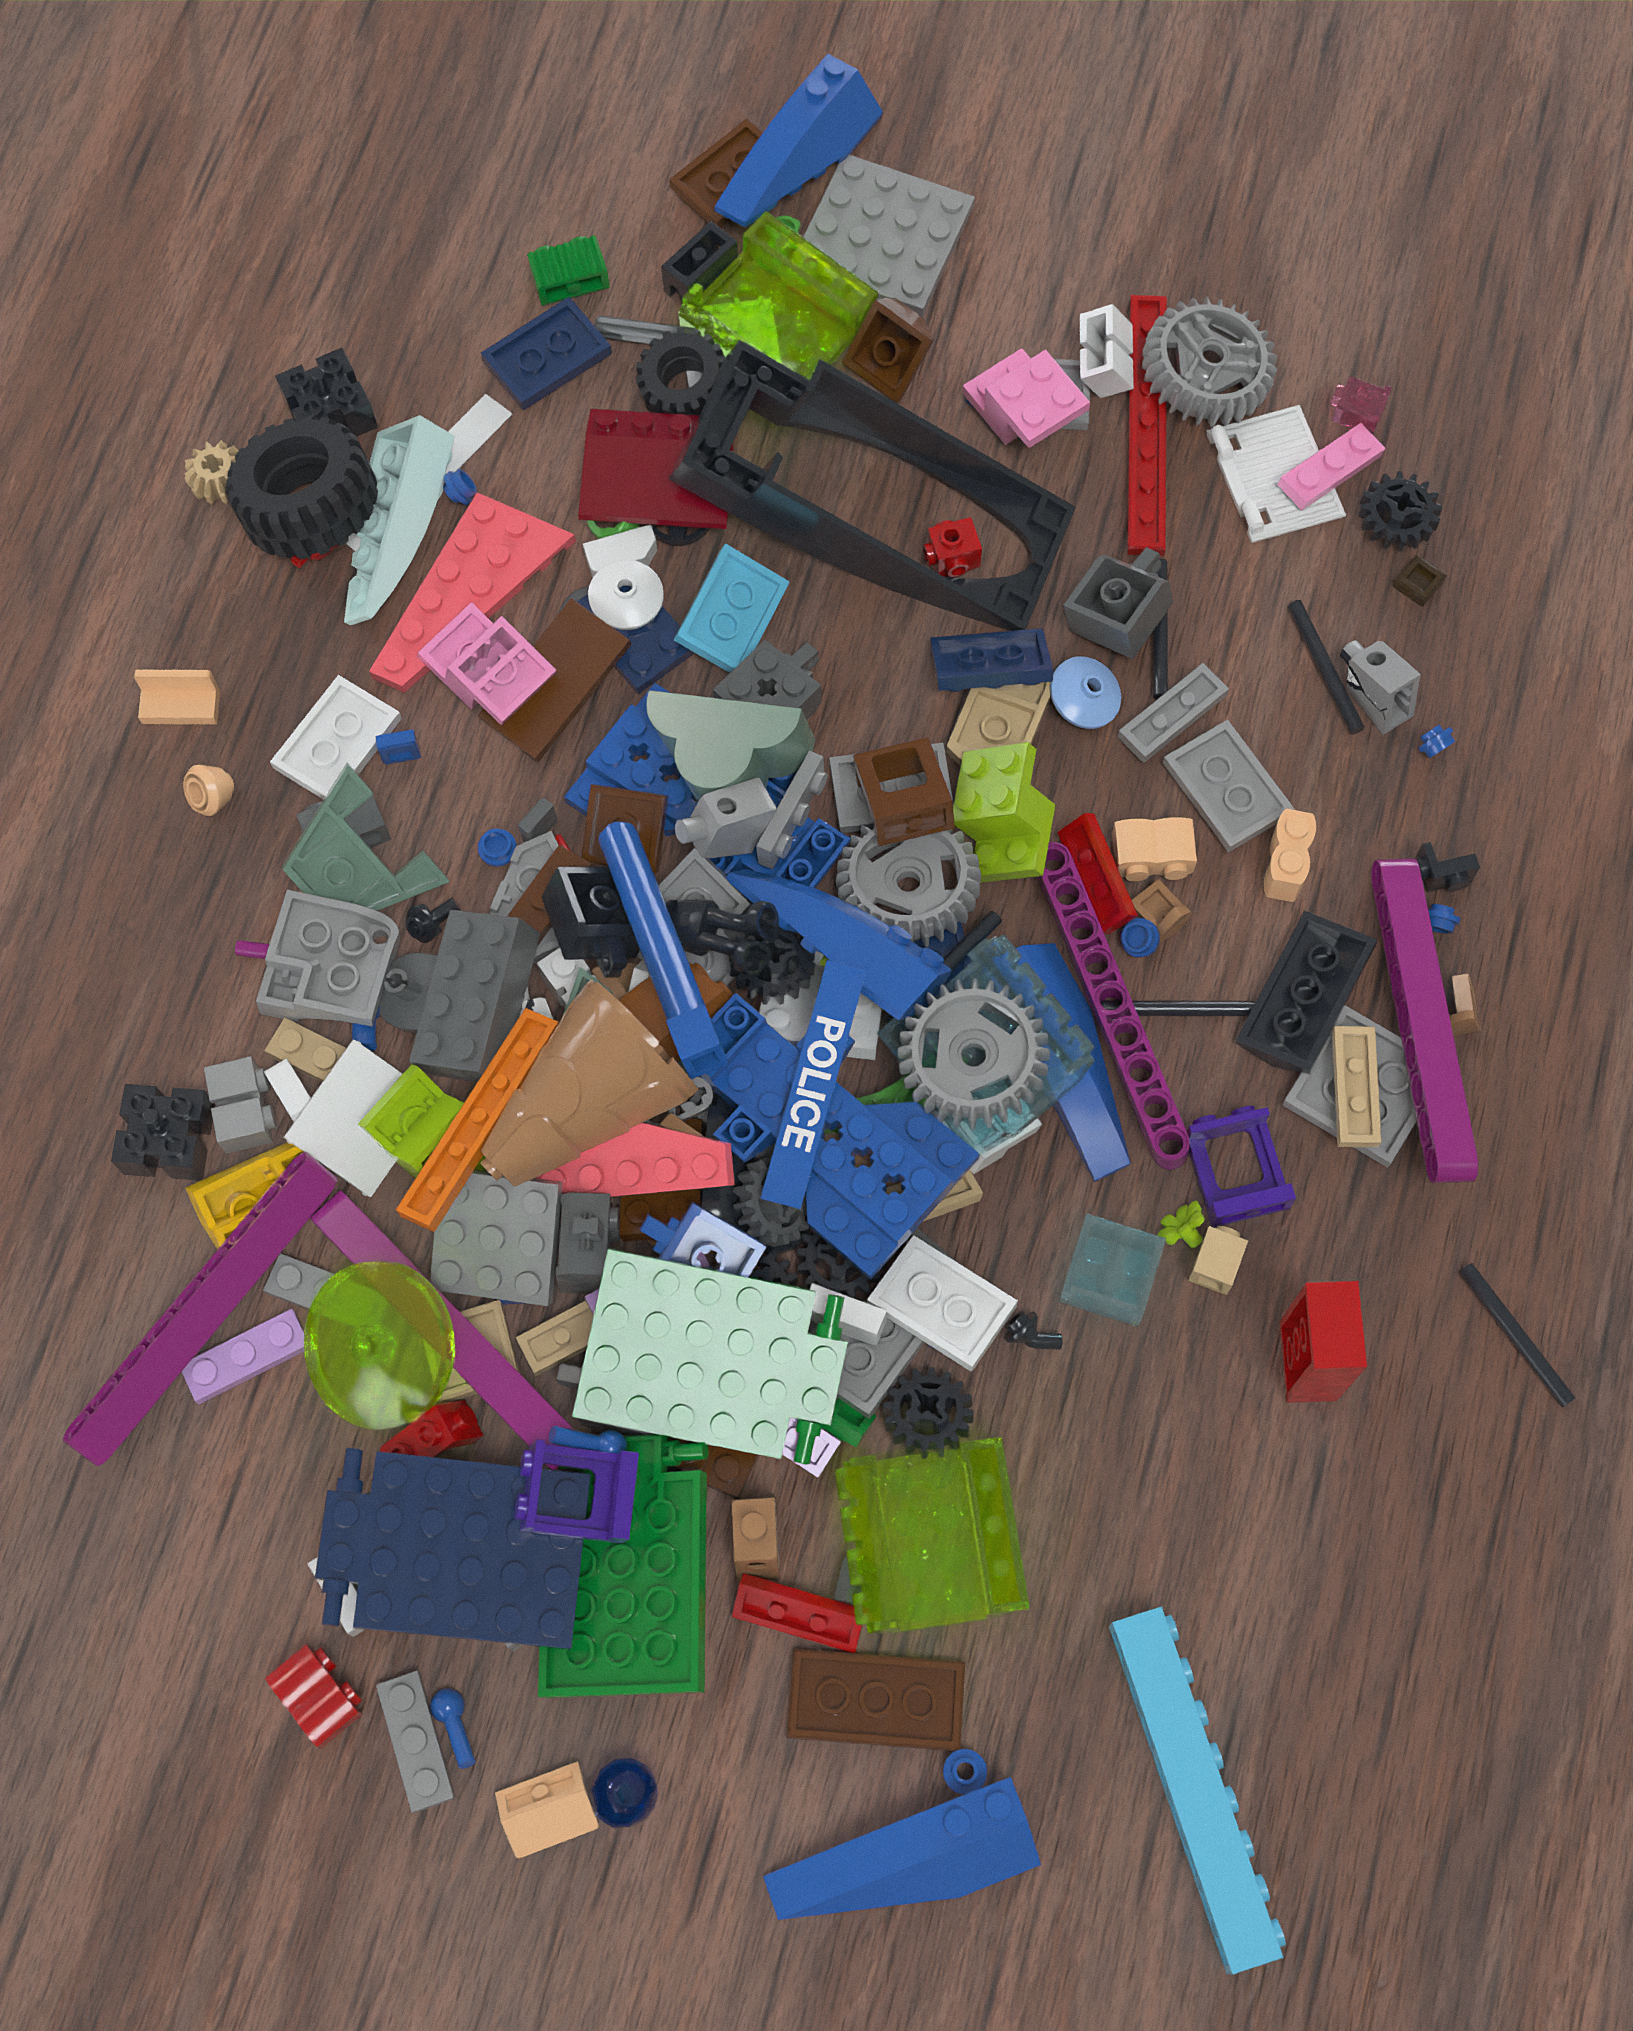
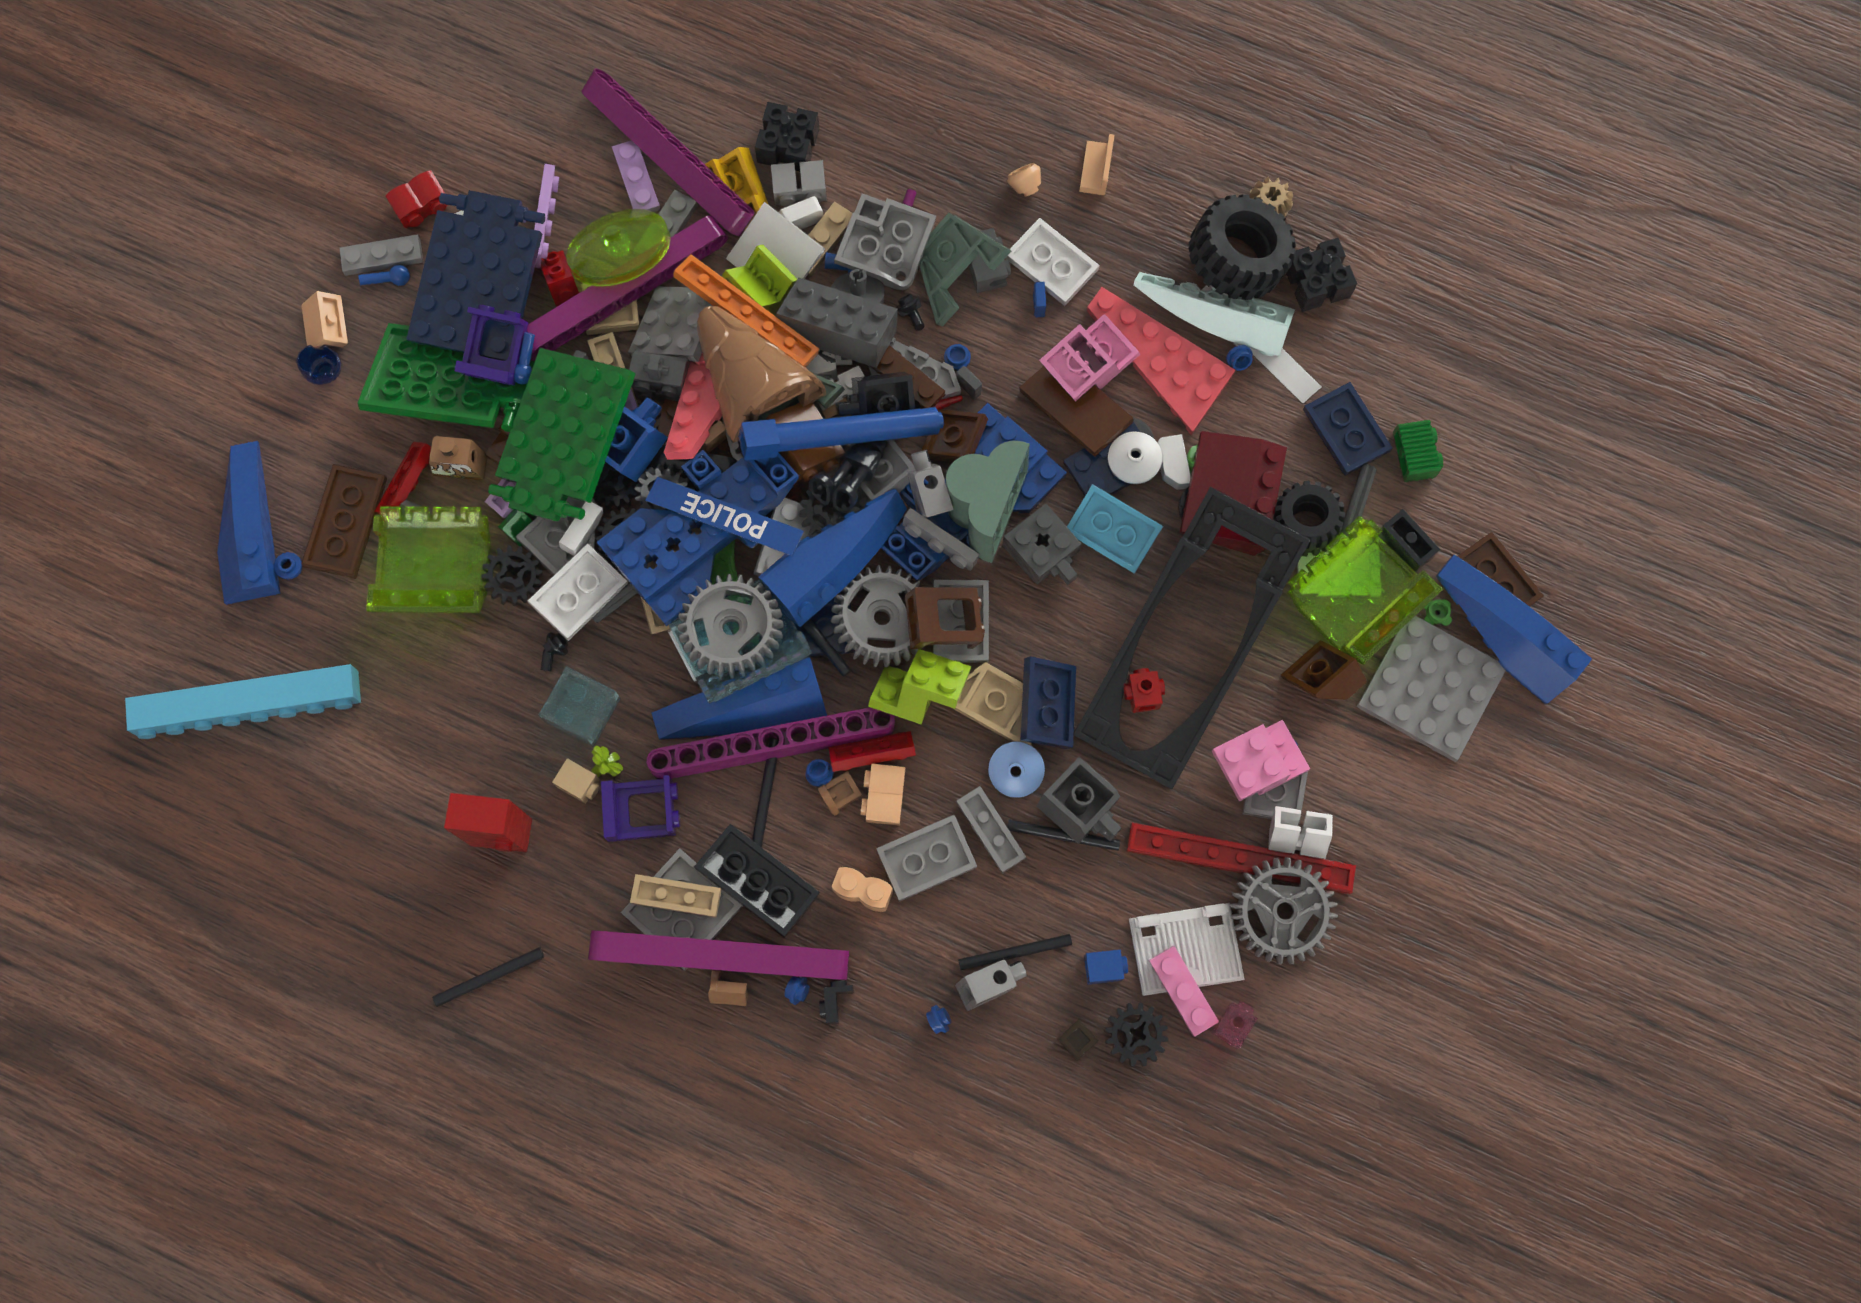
camera: 95 degrees right, 5 degrees up
(300, 1483) = (546, 205): none -> lavender plate
(1324, 556) = (1105, 966): none -> blue brick

